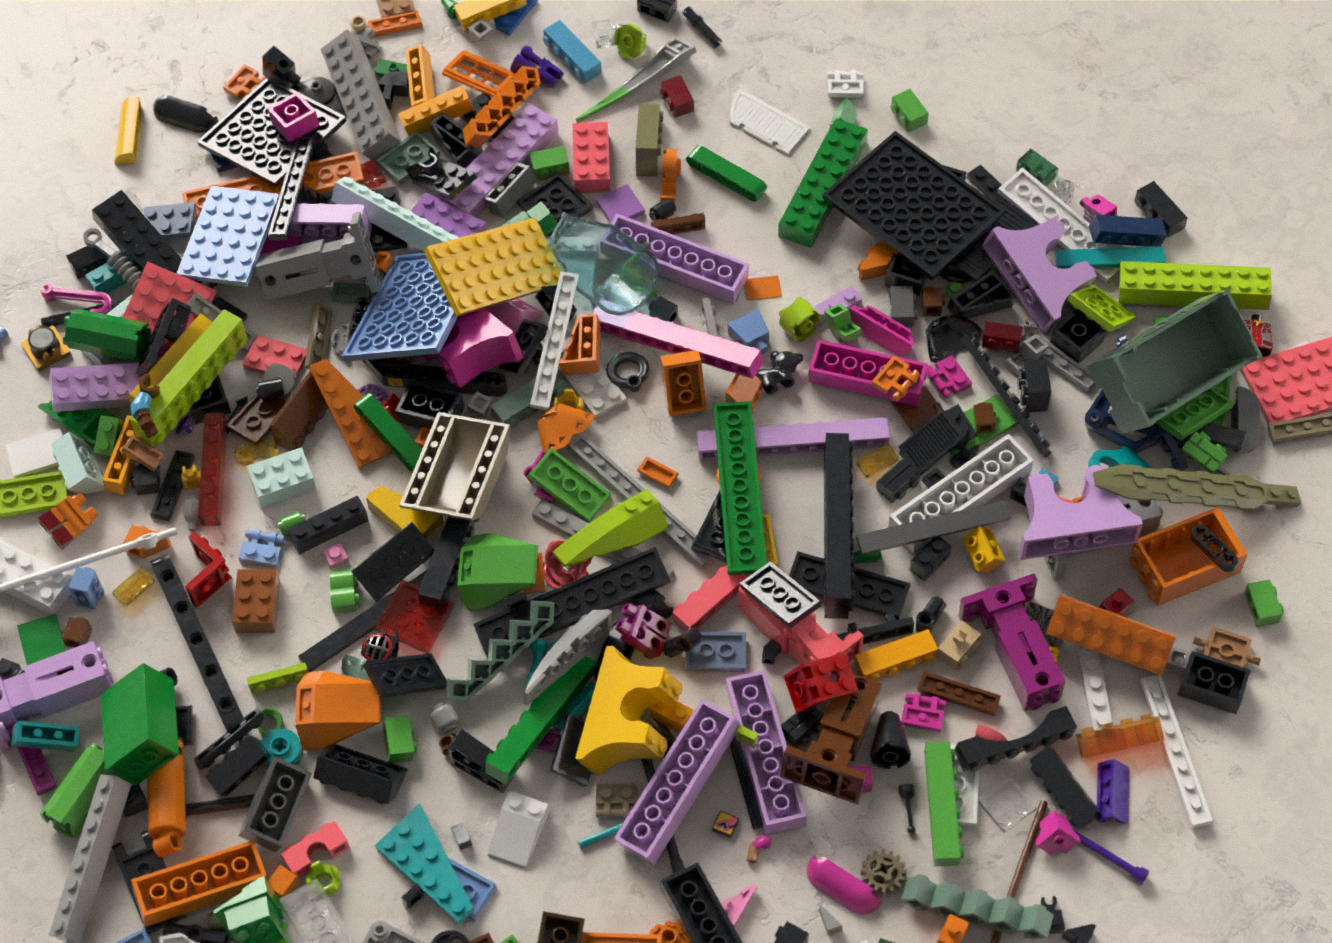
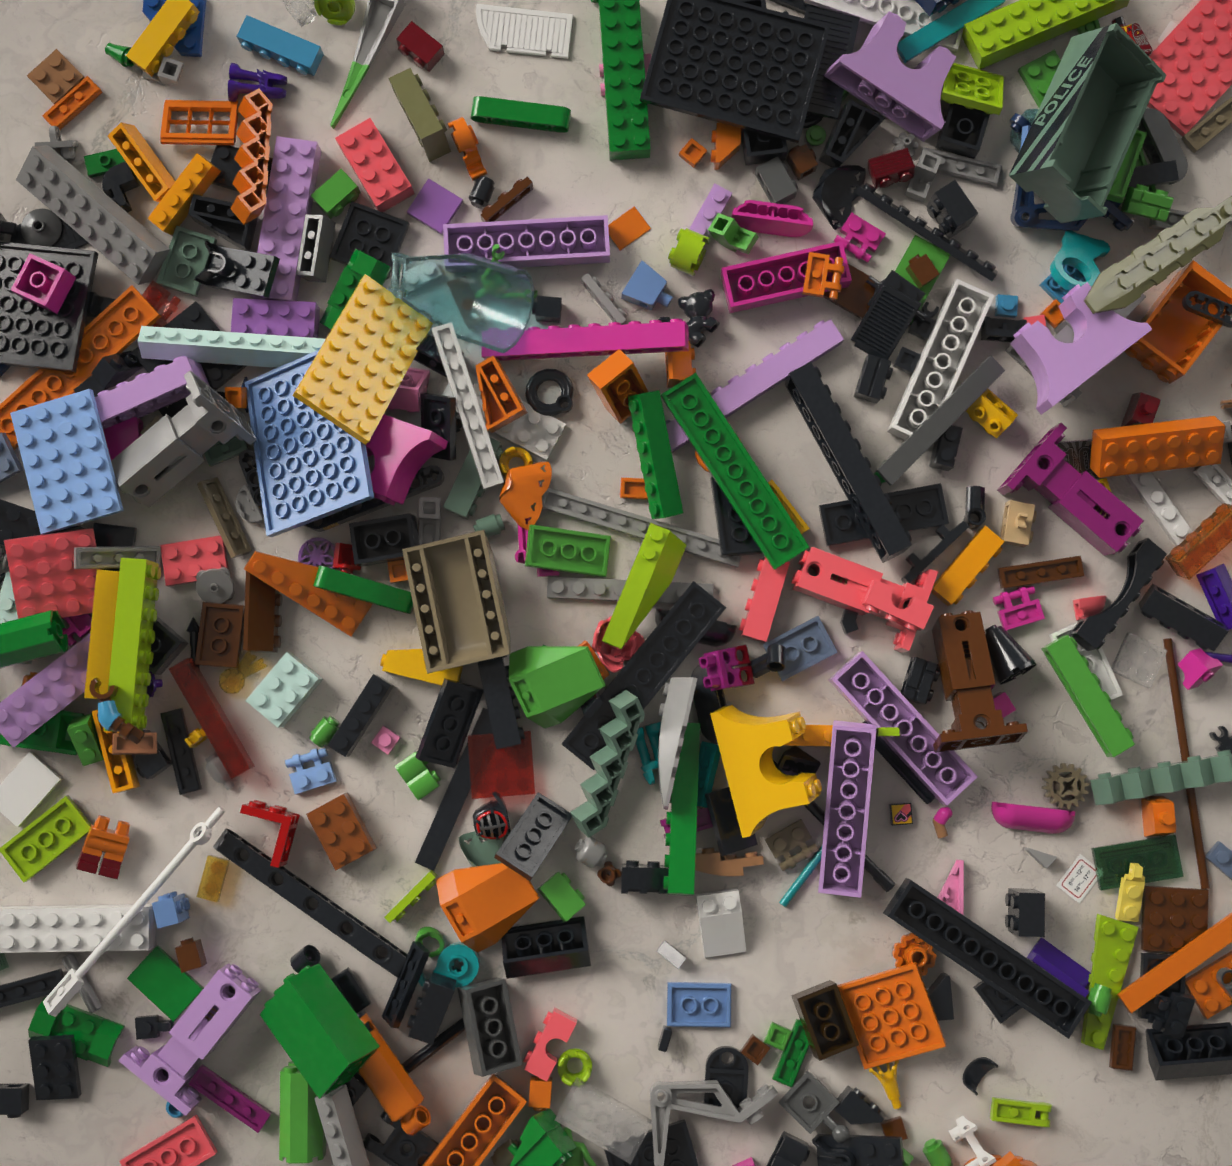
camera: 35 degrees left, 25 degrees up
(45, 736) = (233, 1081): teal brick -> none
(78, 464) = (75, 785): light aqua slope -> none
(138, 531) = (185, 824): orange slope -> none
(168, 327) = (72, 605): black plate -> none
(270, 389) = (214, 604): black brick -> none
(291, 188) = (96, 372): tile -> none
(358, 24) = (30, 120): tan plate -> none
(421, 858) = (650, 998): teal wing -> none
(520, 440) = (491, 524): none -> sand green brick
(554, 788) = (731, 865): none -> medium nougat slope
(682, 446) = (655, 454): none -> green brick
(780, 594) = (847, 578): plate -> none
(811, 681) = (926, 654): red bracket -> none
(847, 258) = (692, 152): none -> orange tile
(877, 461) = (840, 366): clear yellow plate -> none
(907, 792) = (1045, 697): black hinge -> none

